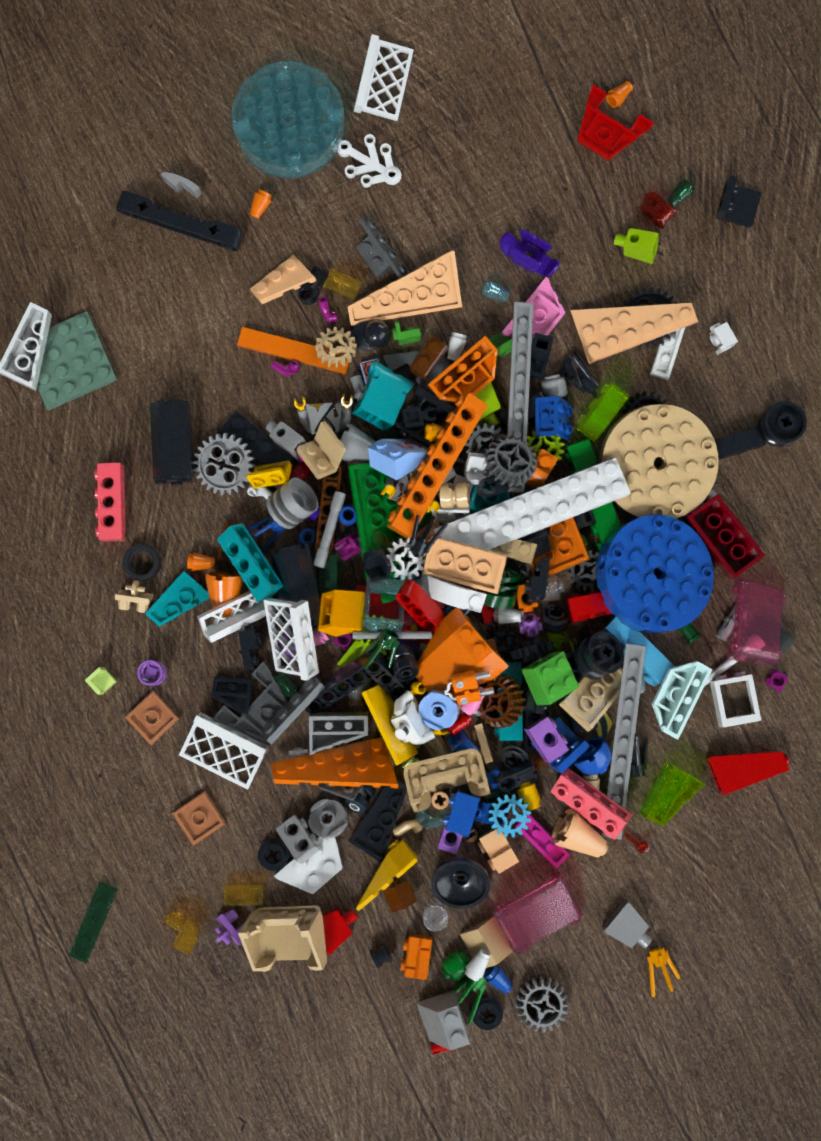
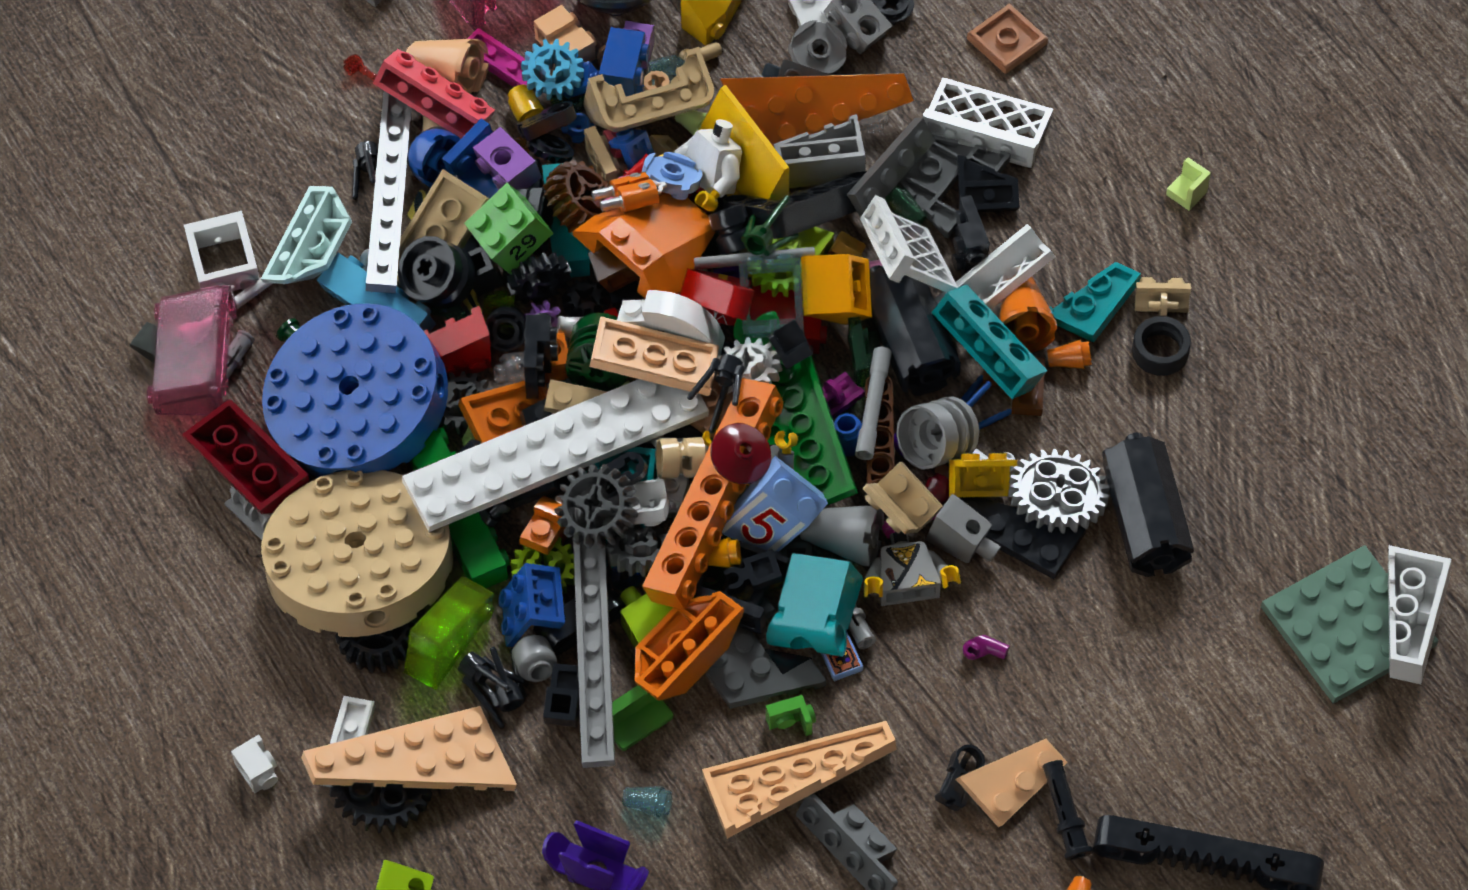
camera: 170 degrees right, 25 degrees down
(117, 530) = (1231, 462): coral brick -> none
(152, 673) = (1112, 199): medium lavender wheel -> none
(152, 717) = (1102, 152): nougat tile -> none
(255, 246) = (1069, 824): none -> black pin
(285, 348) = (976, 677): orange tile -> none
(303, 533) = (904, 400): blue plate -> none
(325, 310) = (929, 737): magenta arm -> none
(331, 654) = (846, 245): none -> pearl gold bracket
(336, 354) = (893, 673): tan gear -> none
(343, 284) = (909, 778): clear yellow hips -> none
(371, 334) = (850, 712): black cap -> none
(377, 824) = (746, 47): black wing -> none
(423, 484) = (734, 464): none -> dark red dish
(428, 358) = (748, 667): reddish brown brick -> none
(456, 345) = (704, 710): white cone -> none
(546, 310) = (560, 778): bright pink wing -> none
(669, 794) = (317, 126): clear neon green wedge -> none
(739, 443) = (227, 607): black beam -> none
(744, 769) = (203, 171): red slope -> none
(782, 679) = (154, 284): magenta plate -> none
(783, 424) = (153, 638): black wheel -> none

